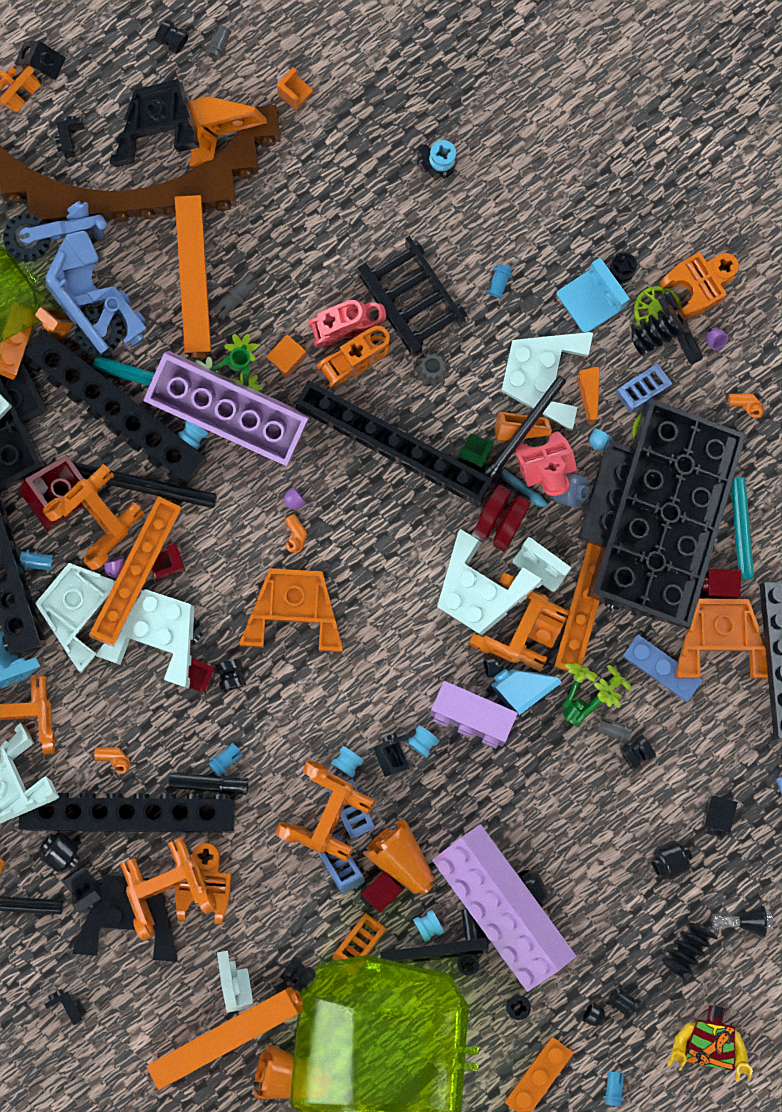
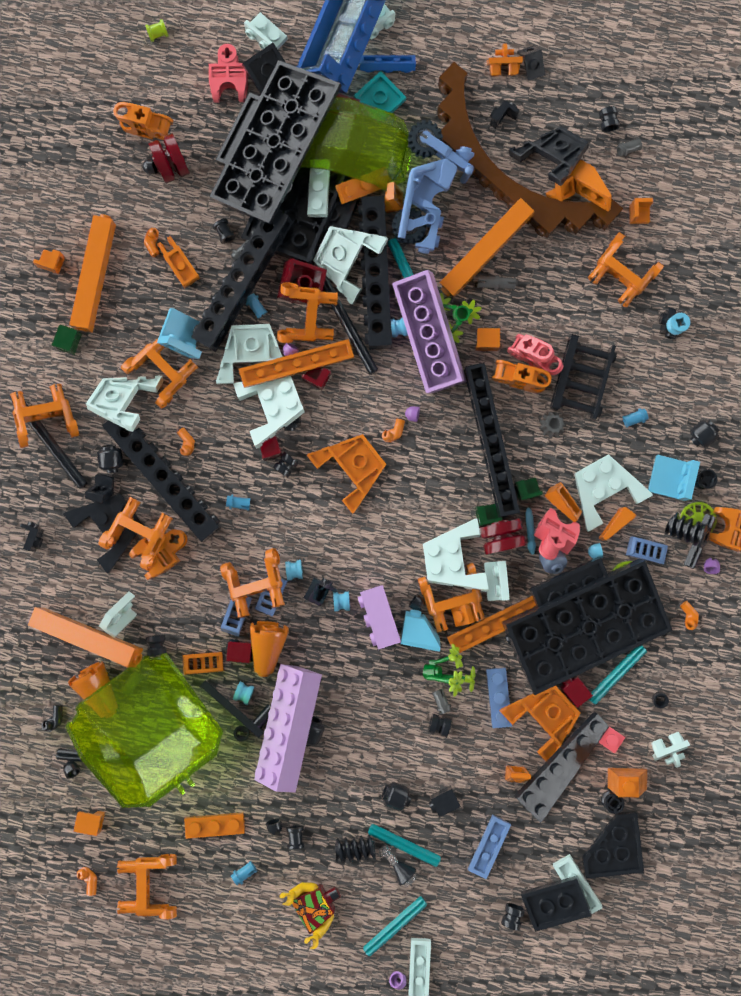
camera: 50 degrees right, 5 degrees up
(61, 427) = (339, 253): none -> light aqua wing
(209, 783) = (217, 505): black axle -> none
(361, 161) = (609, 264): none -> orange connector
(465, 515) = (487, 514): none -> dark green panel
(494, 468) = (527, 508): black piece -> none
(522, 1014) = (241, 787): black bush -> none
(576, 227) = (704, 433): none -> black head
(728, 897) = (404, 845): none -> teal axle
(756, 718) = (517, 774): none -> orange slope

